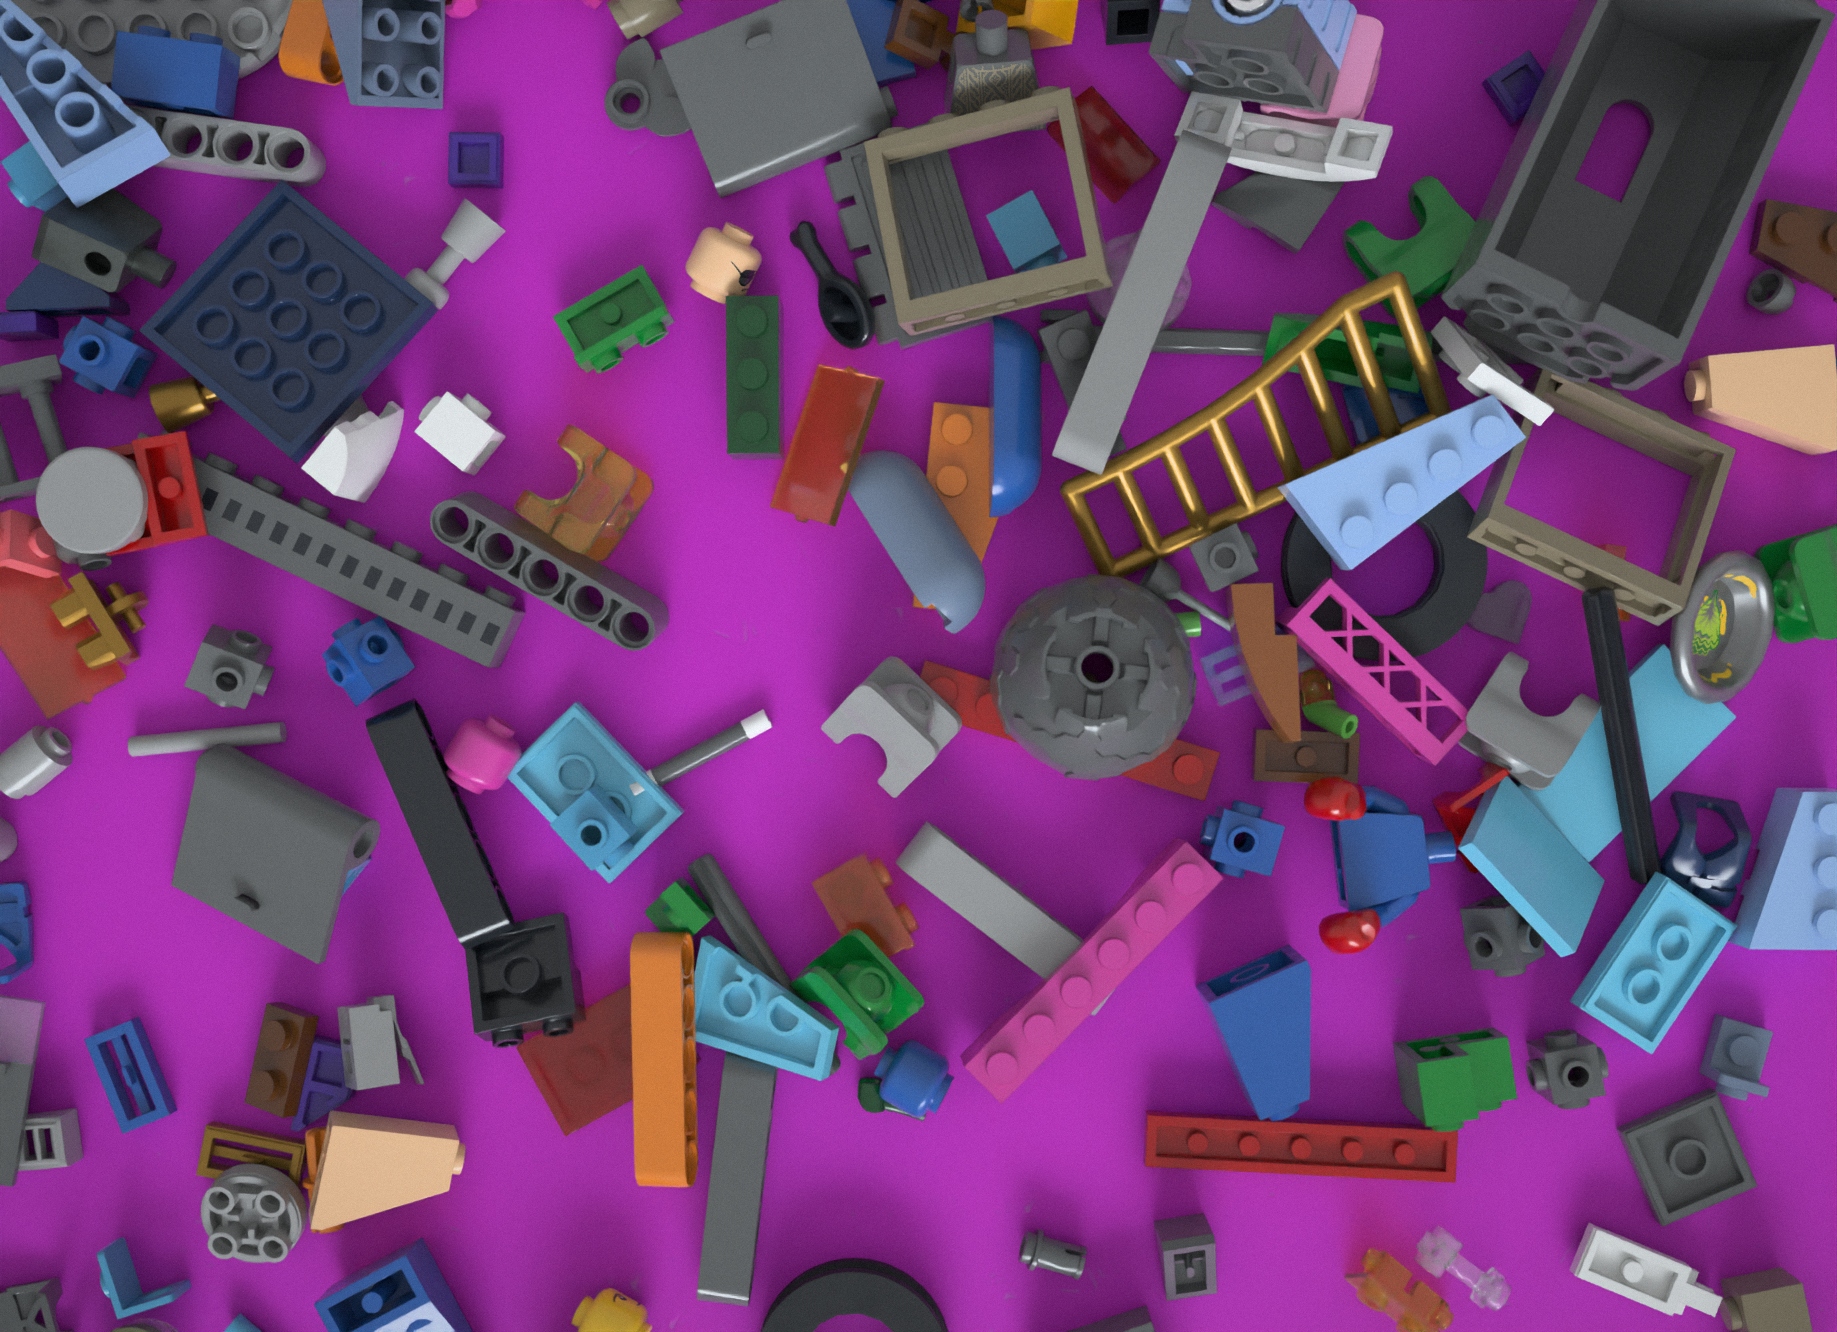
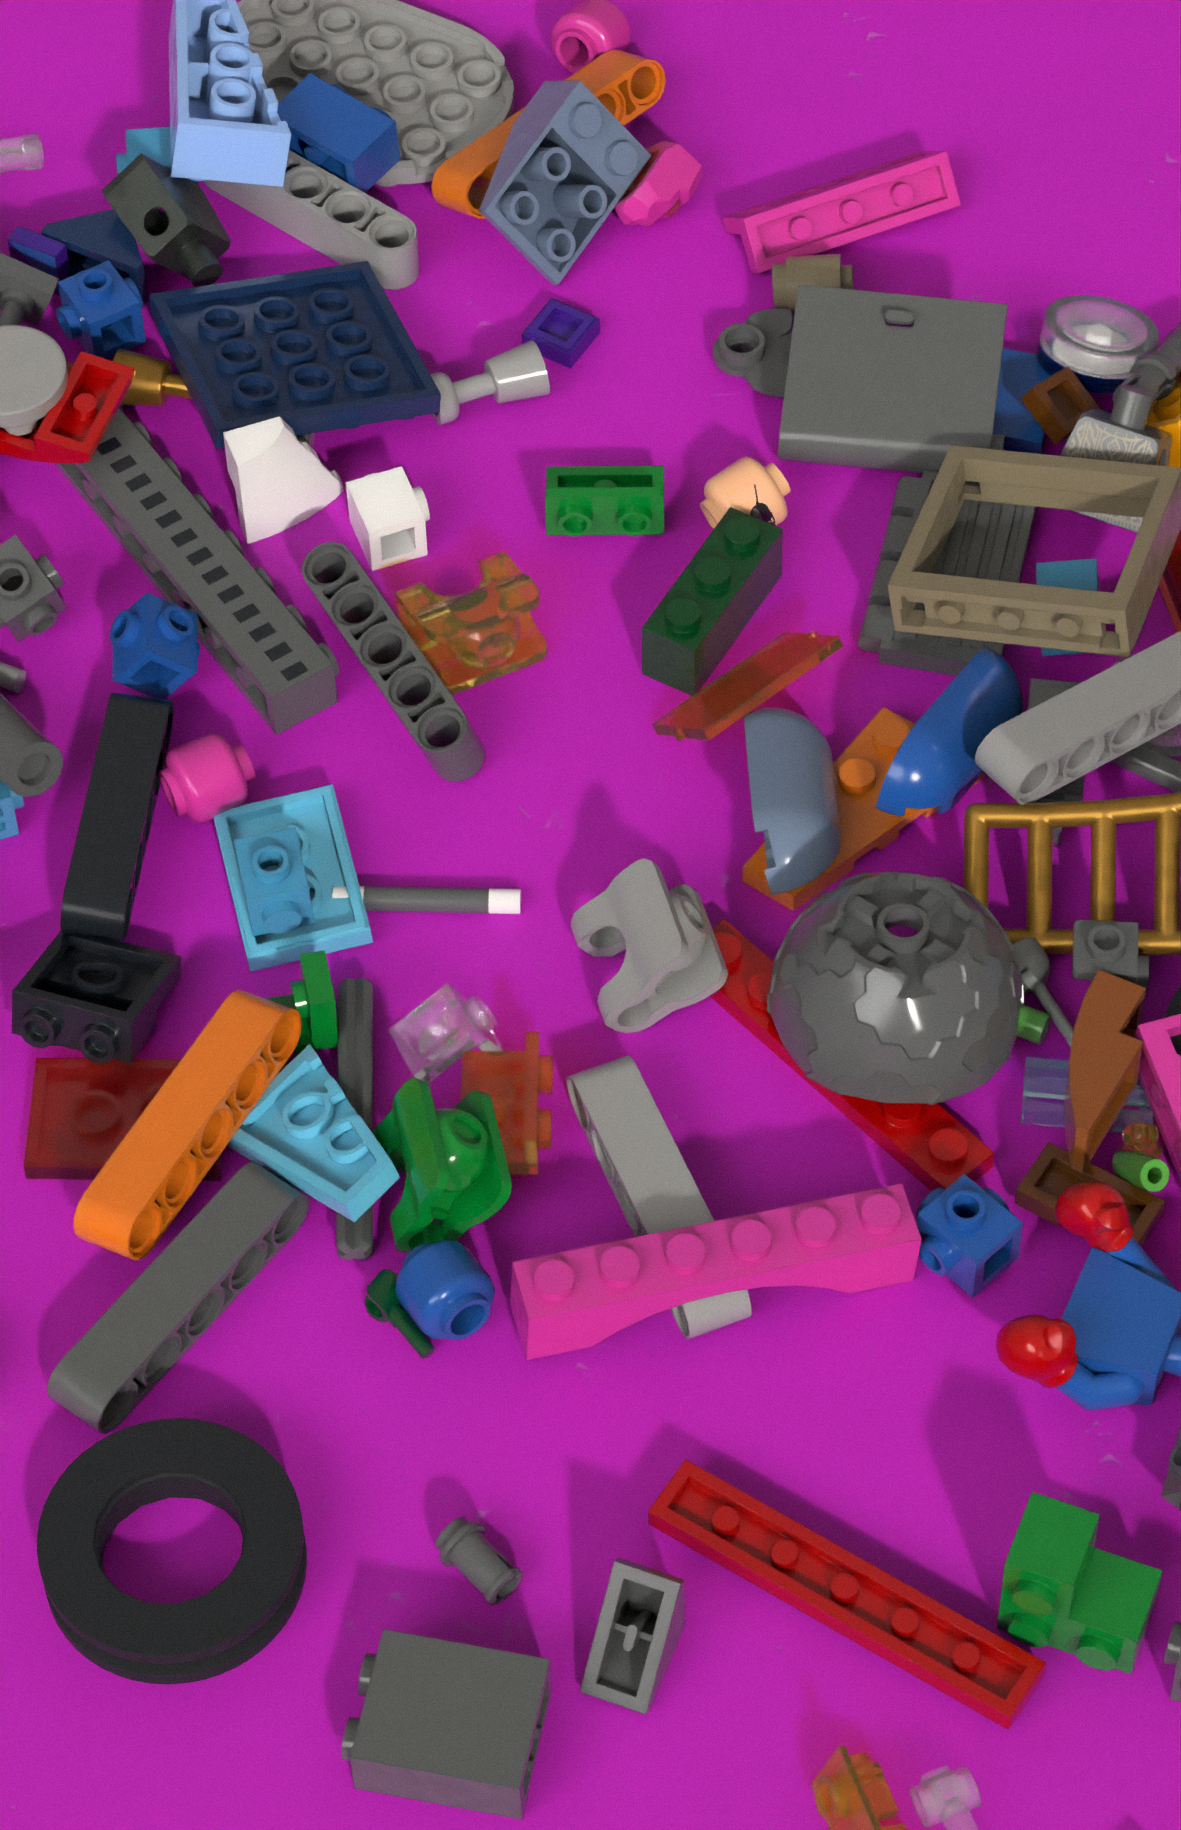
camera: 35 degrees right, 35 degrees down
(788, 869) = (443, 1028): none -> clear bracket
(841, 301) = (846, 584): black piece -> none
(1265, 1029) = (879, 1414): blue slope -> none

